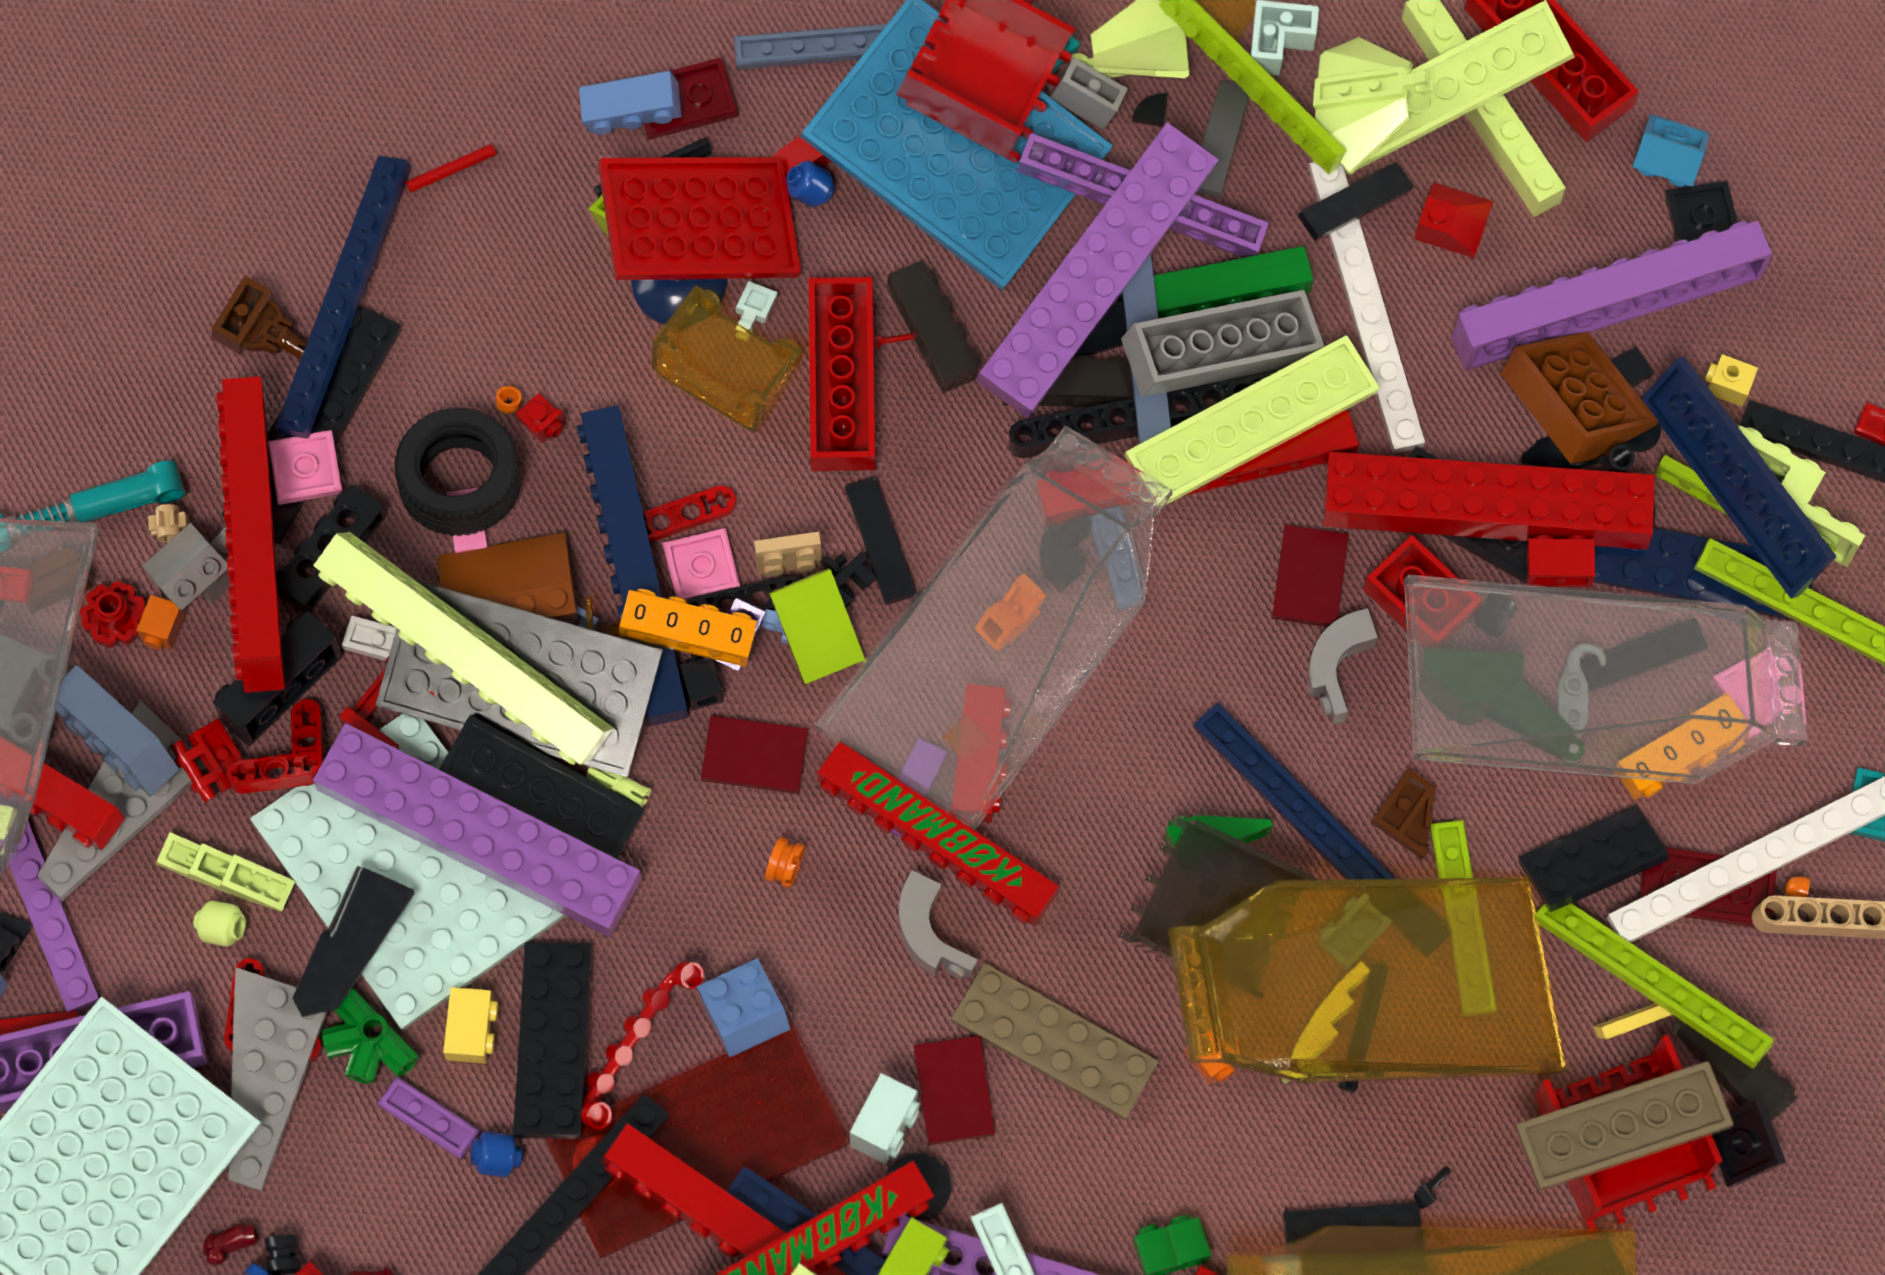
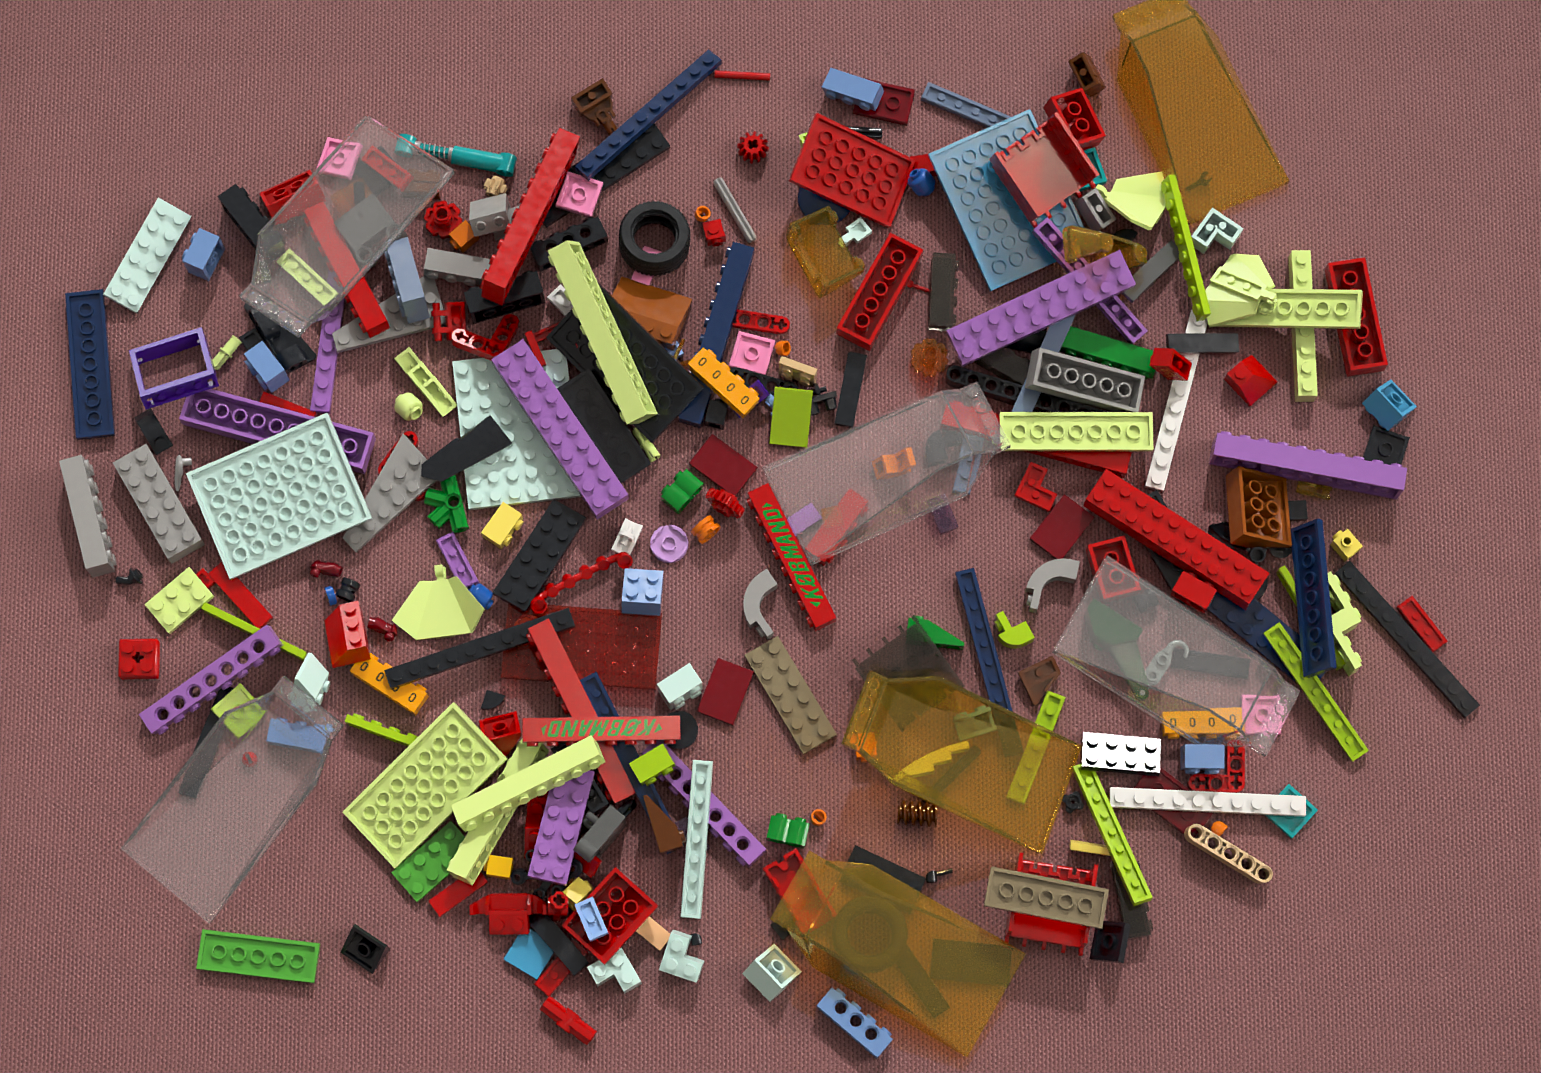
camera: 30 degrees right, 5 degrees up
(178, 673) = (455, 267): none -> light grey brick
(444, 1205) = (439, 609): none -> yellowish green panel
(538, 268) = (751, 141): none -> red gear
(553, 369) = (735, 210): none -> light grey axle
(671, 938) = (627, 537): none -> white hips
(714, 826) = (681, 491): none -> green brick
(739, 915) = (669, 543): none -> lavender tile
(743, 533) = (782, 348): none -> orange hinge
(792, 806) = (725, 503): none -> red gear
(970, 432) = (929, 357): none -> clear orange plant
(1108, 138) = (1083, 242): none -> clear yellow windscreen
(1132, 655) = (944, 519): none -> clear purple plate
(1207, 1197) = (820, 815): none -> orange hinge
(1234, 546) = (1031, 490): none -> red plate
(1330, 253) = (1170, 364): none -> red brick
(1330, 774) = (1015, 636): none -> lime brick
(1349, 1110) = (917, 813): none -> reddish brown piece
(1564, 958) = (1075, 796): none -> black plate
(1634, 327) = (1310, 489): none -> clear yellow bar
(1714, 797) = (1201, 758): none -> medium blue brick
(1764, 812) = (1225, 779): none -> red beam

